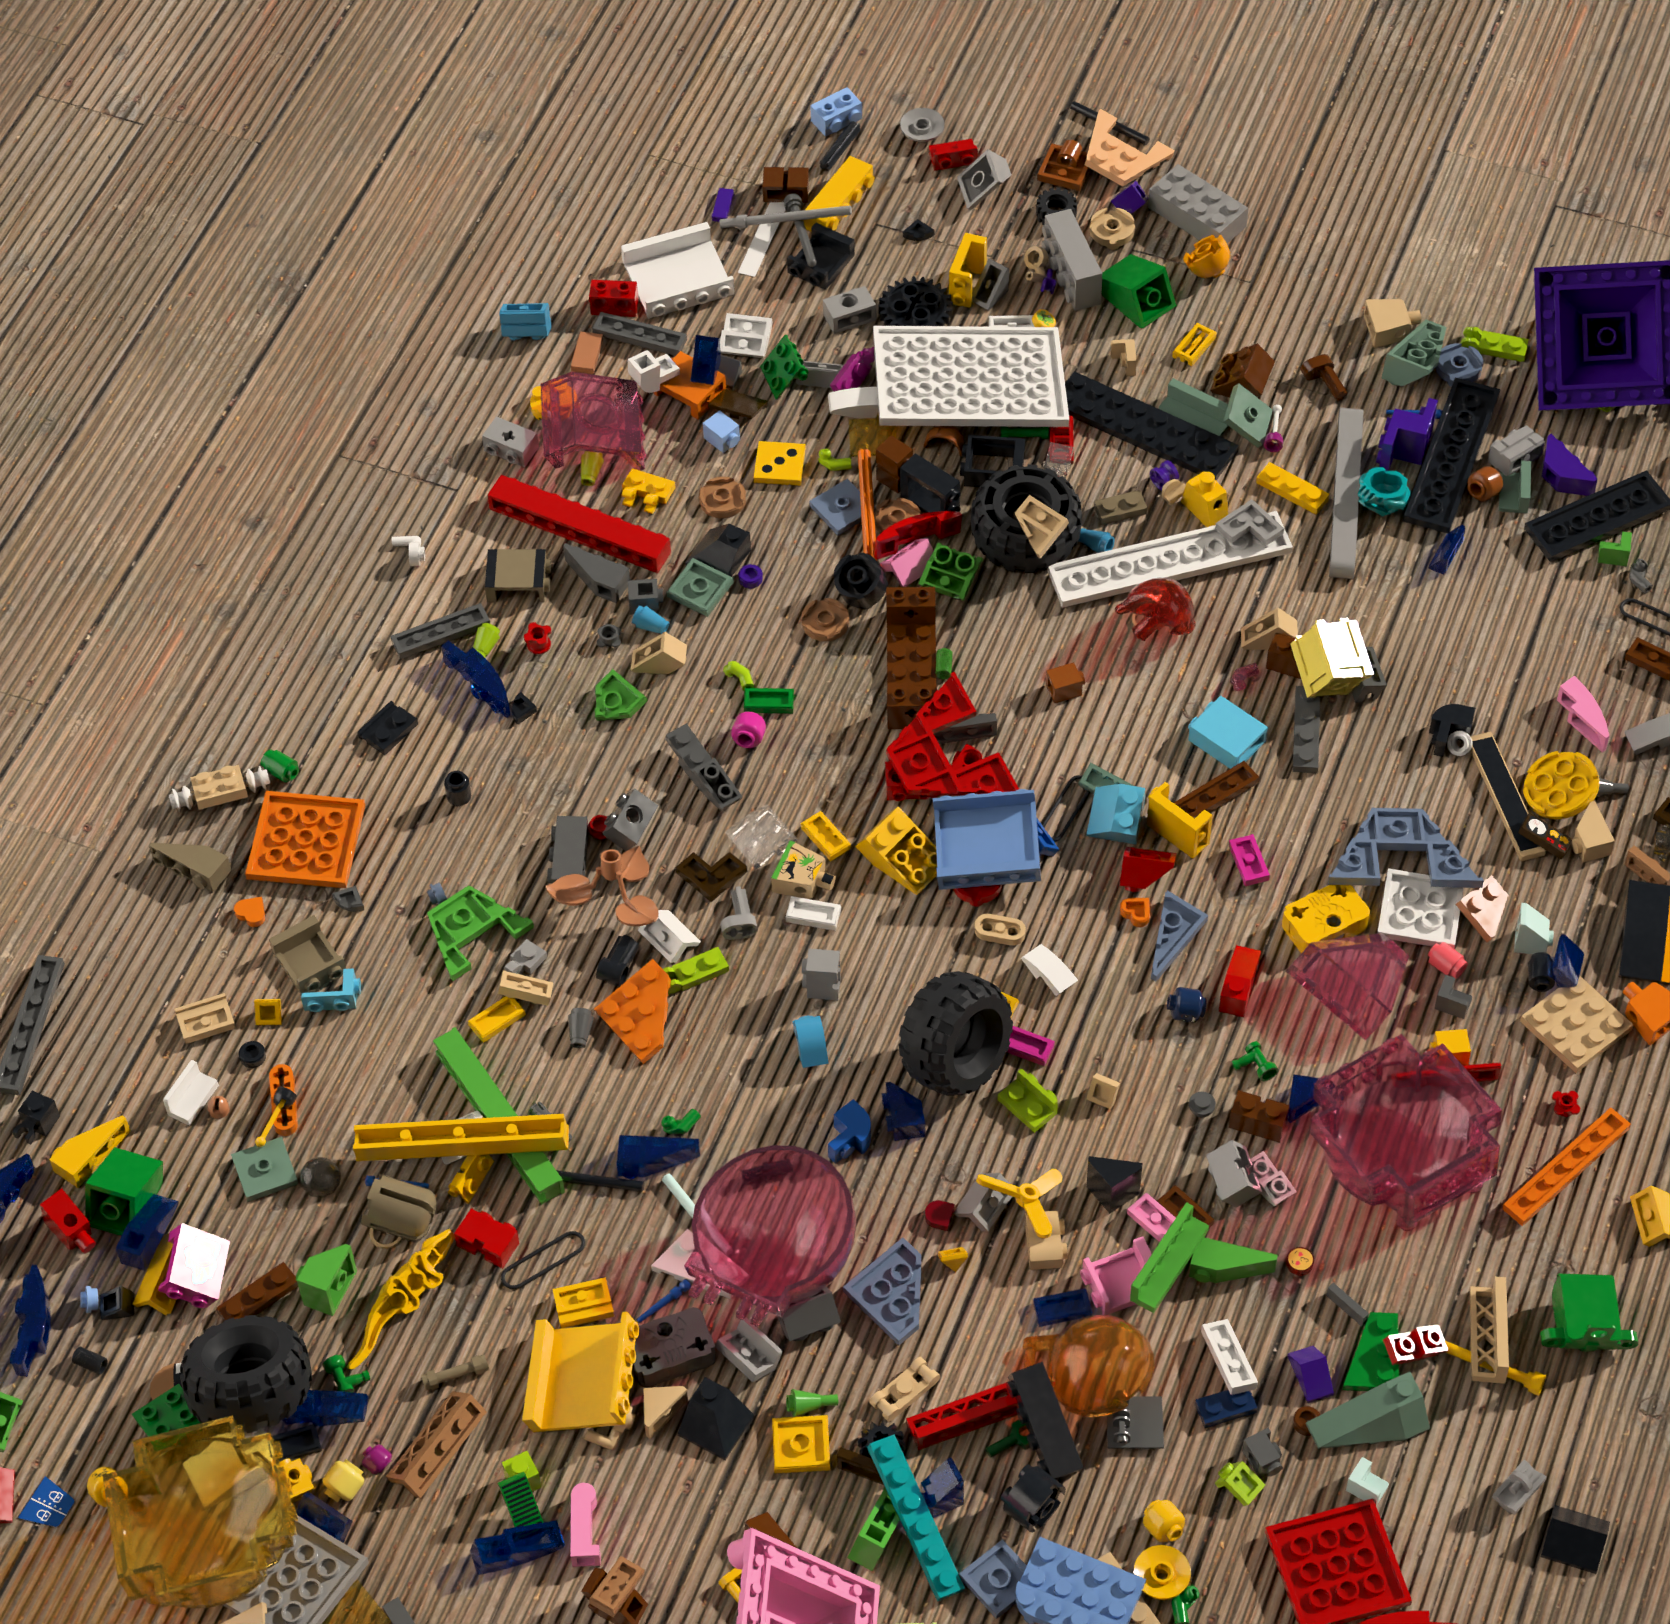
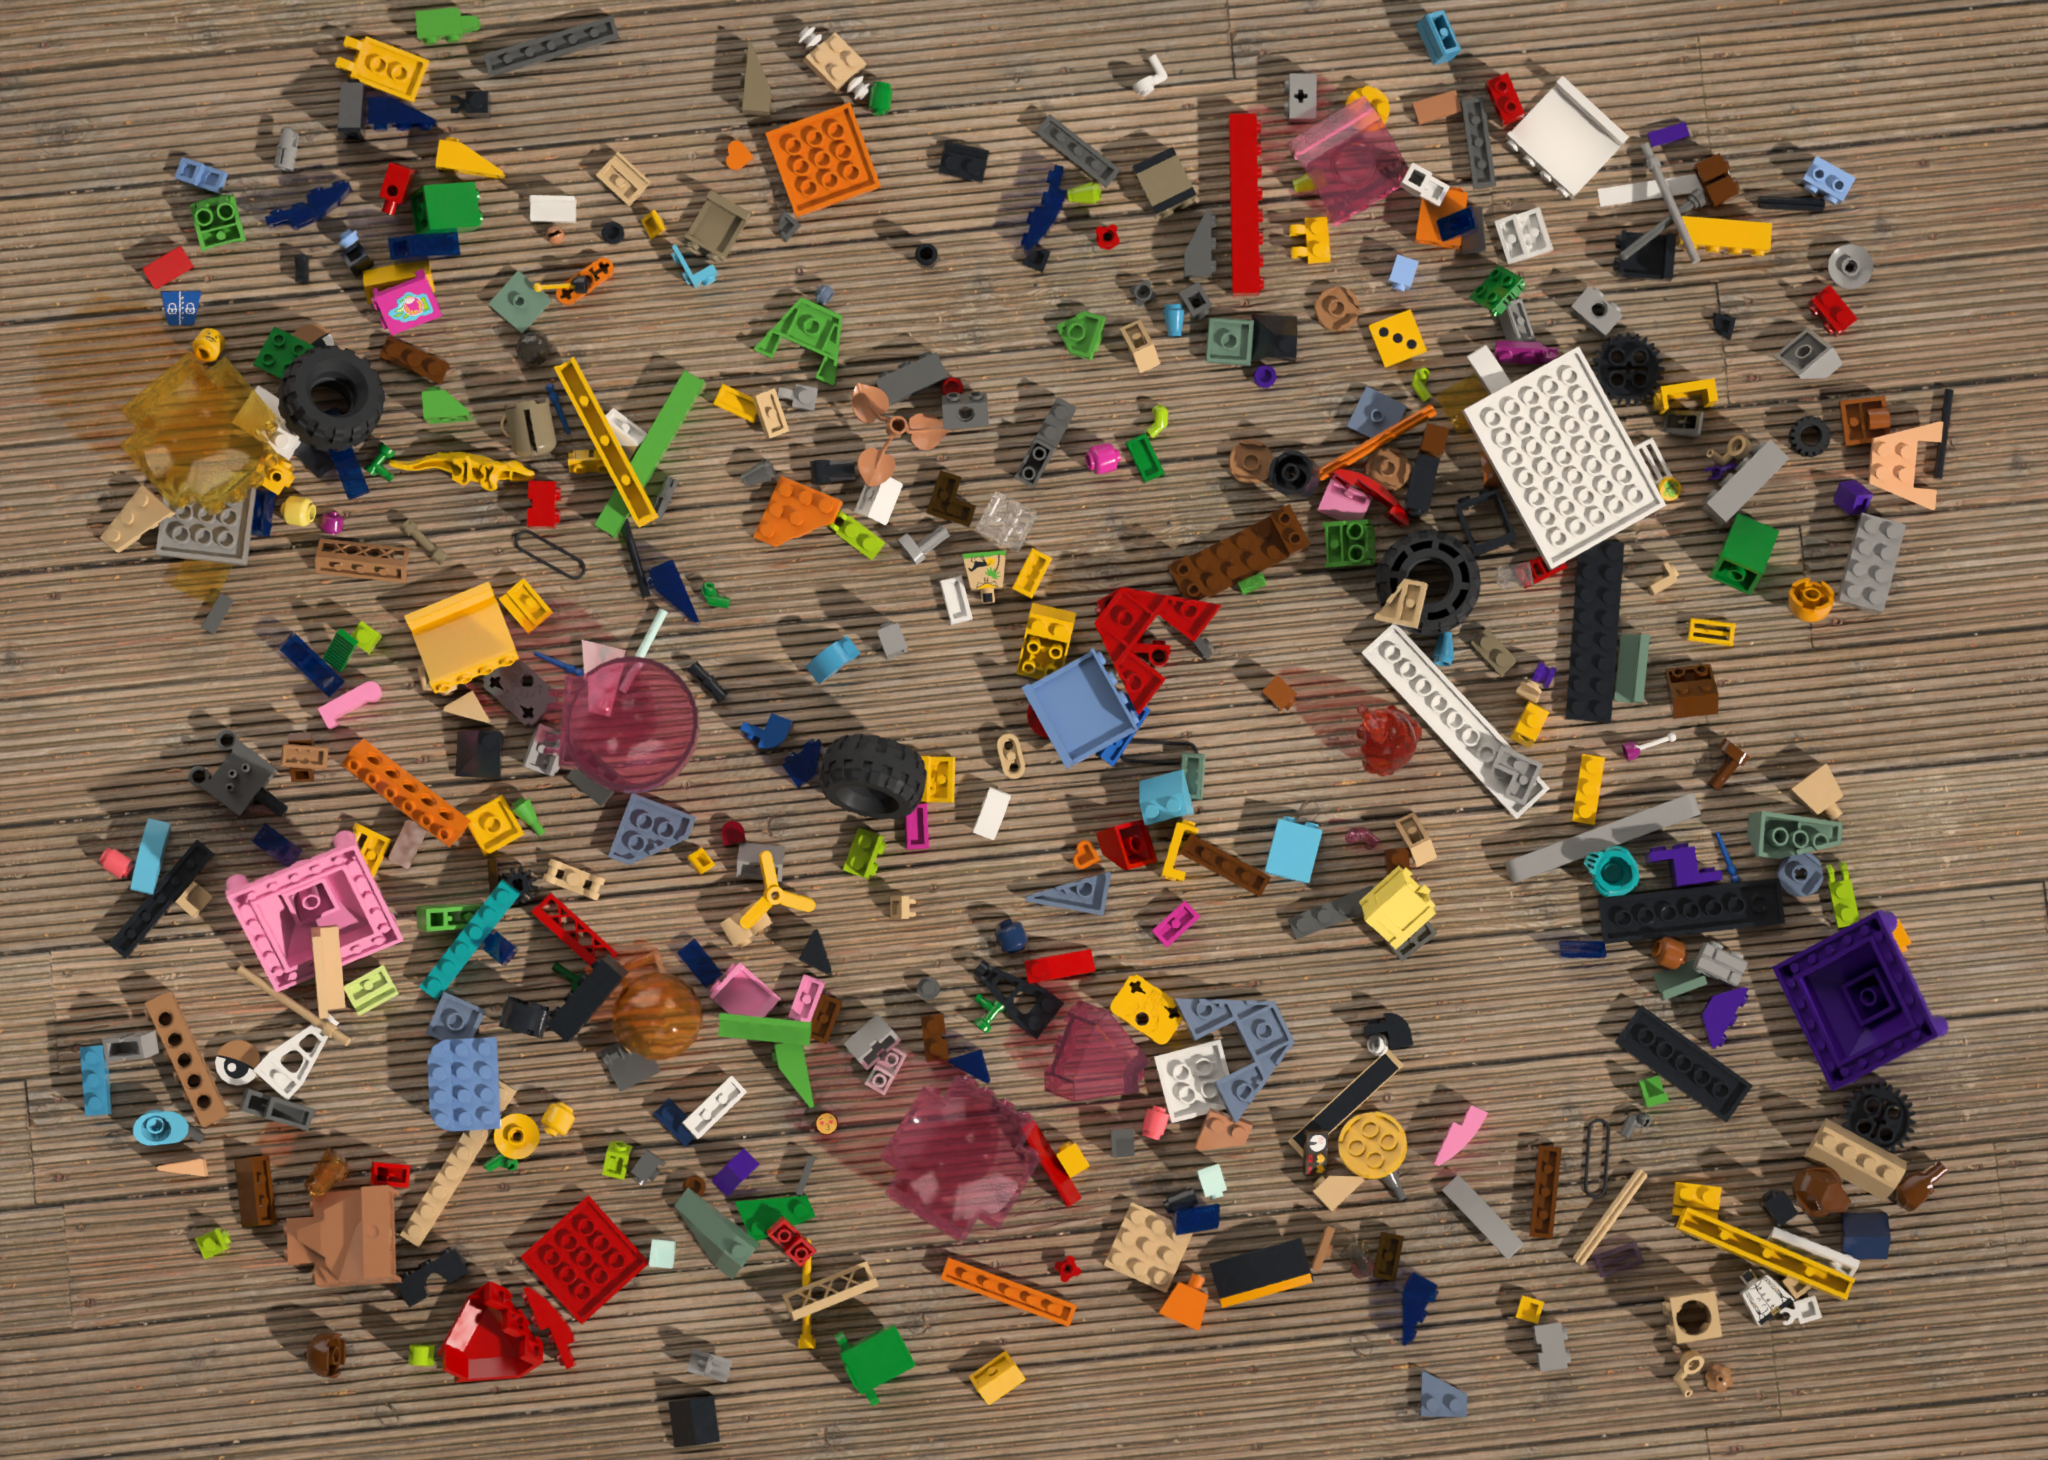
camera: 60 degrees right, 30 degrees up
(716, 1508) = (406, 792): none -> orange brick
(737, 404) = (1439, 271): dark brown piece -> none
(1112, 237) = (1806, 485): tan plate -> none
(1248, 415) = (1642, 717): sand green plate -> none
(1278, 1012) = (1041, 1013): none -> black plate

